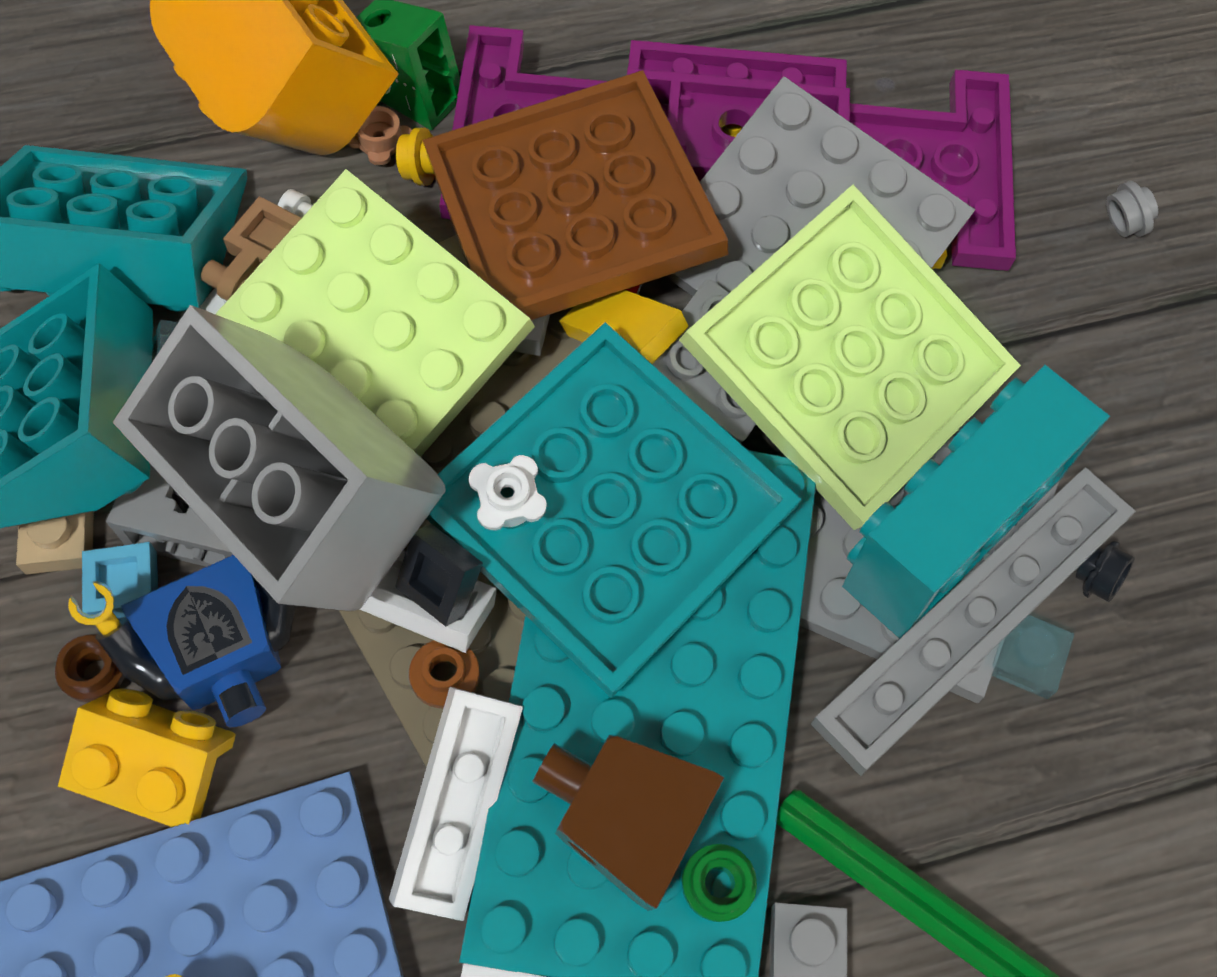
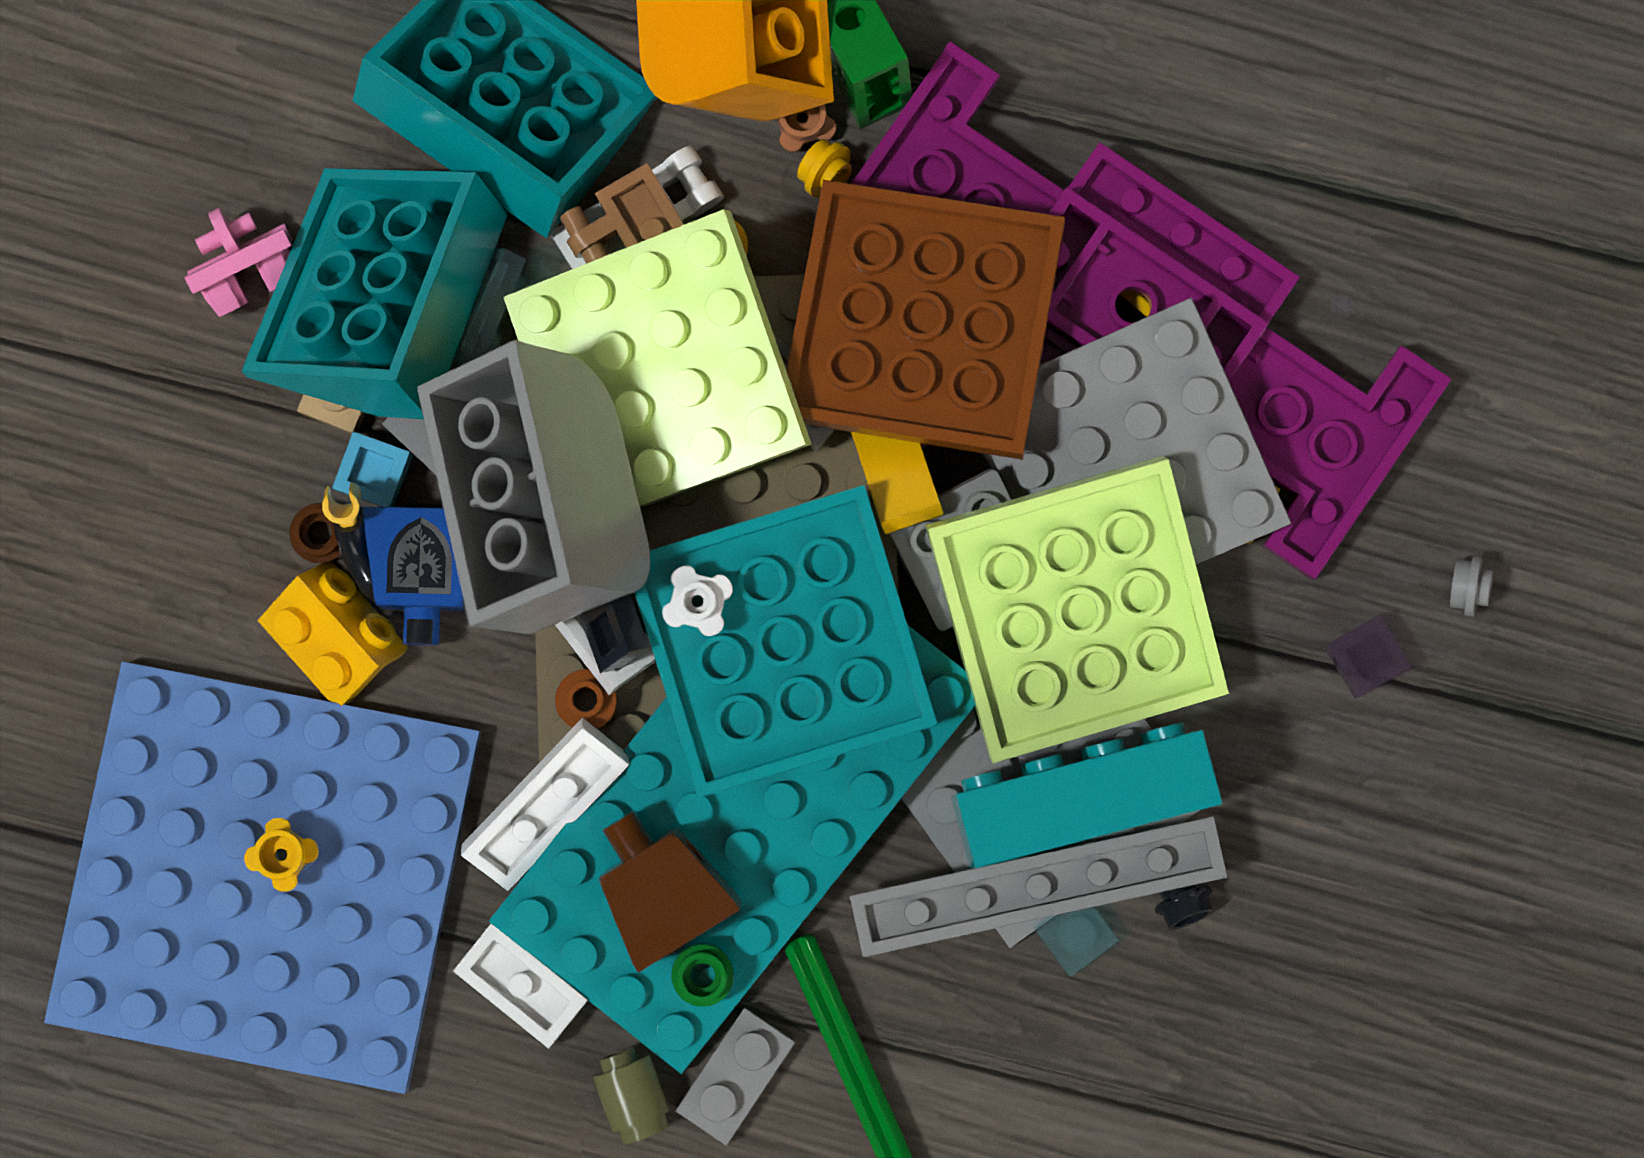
camera: 35 degrees right, 20 degrees up
(1096, 298) = (1367, 656): none -> clear purple plate

